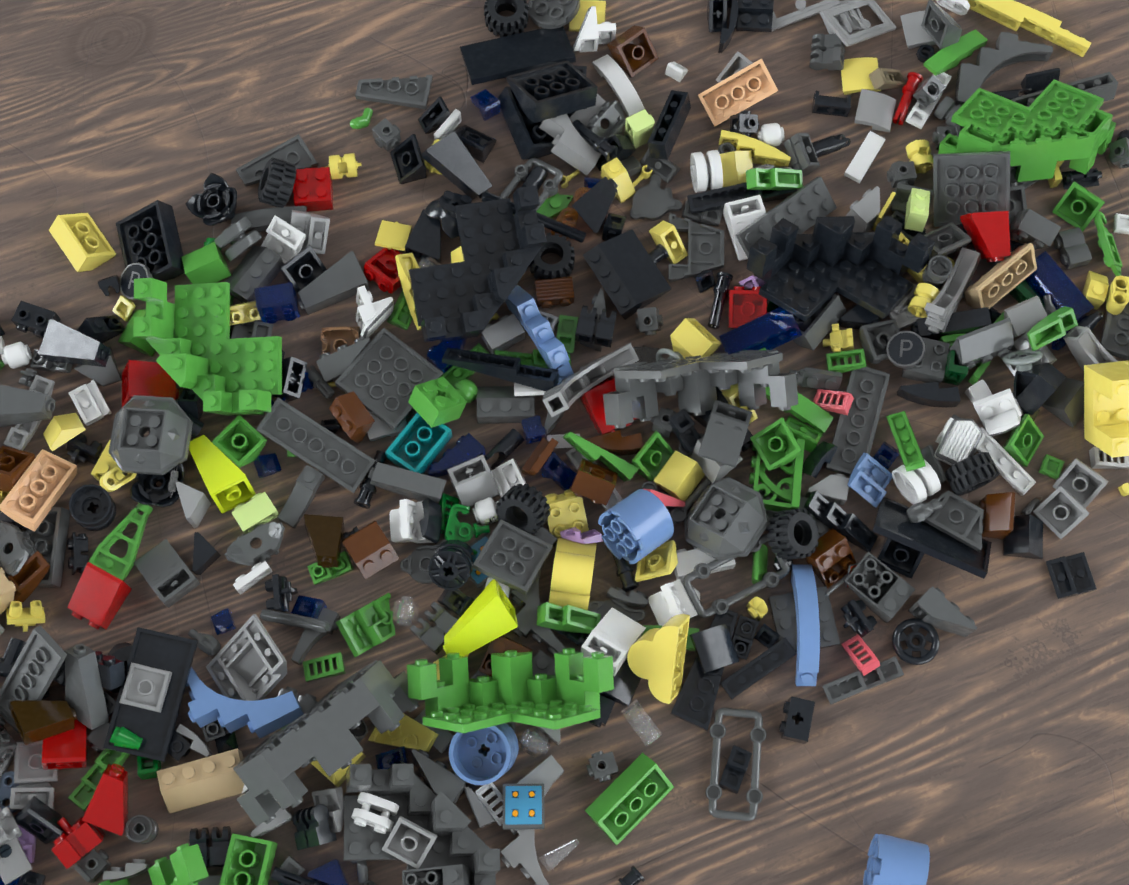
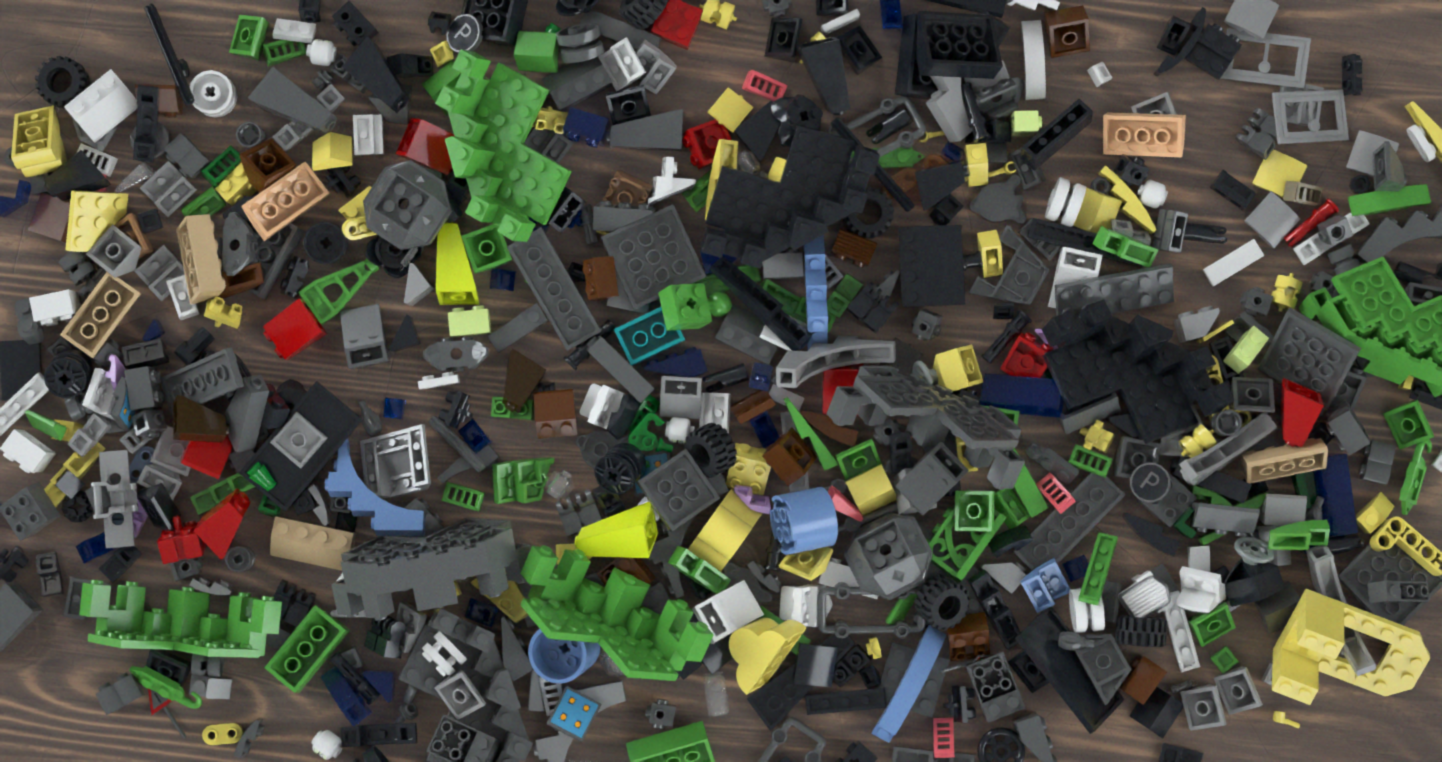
camera: 30 degrees right, 15 degrees up
(412, 199) = (762, 93): none -> coral slope

